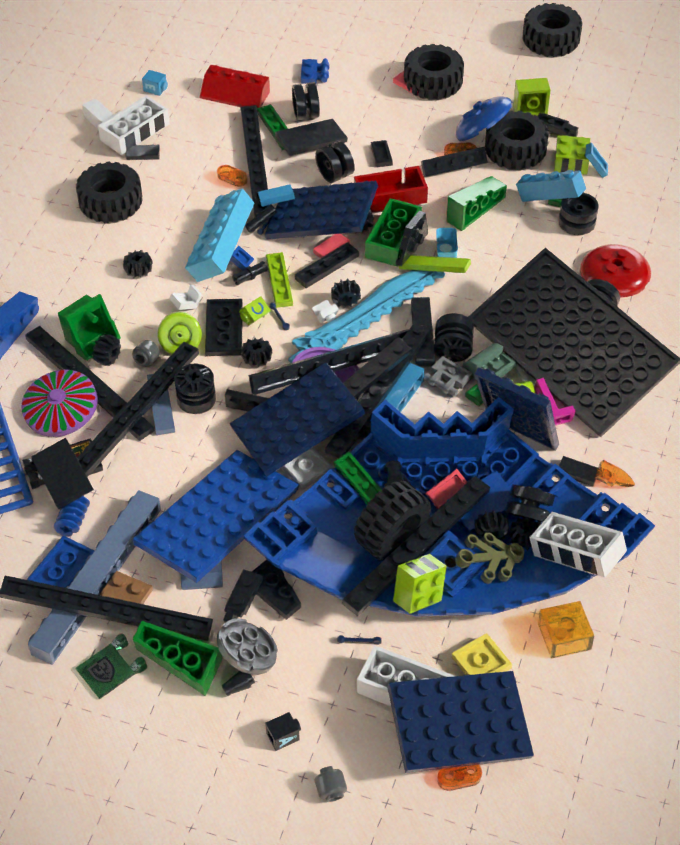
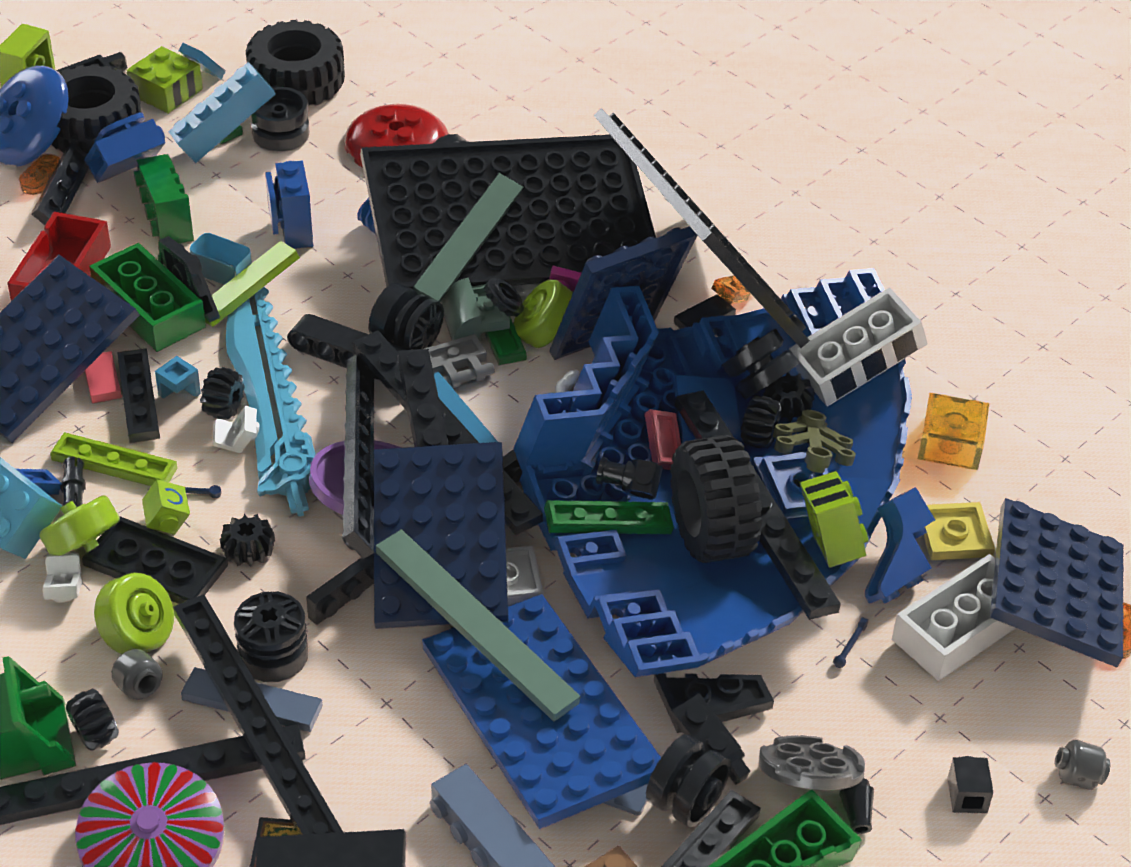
camera: 65 degrees left, 5 degrees down
(200, 593) = (688, 780): none -> black wheel
(215, 285) = (79, 526): none -> lime wheel
(239, 459) = (478, 625): none -> sand green tile
(344, 270) = (176, 376): none -> dark azure panel
(431, 638) = (902, 558): none -> blue arch
(494, 164) = (123, 143): none -> blue brick
(503, 249) = (290, 204): none -> blue brick
(506, 367) = (504, 297): none -> black gear
(529, 330) = (468, 238): none -> sand green tile
(594, 418) = (704, 227): none -> black plate
(631, 182) = (299, 58): none -> black tyre

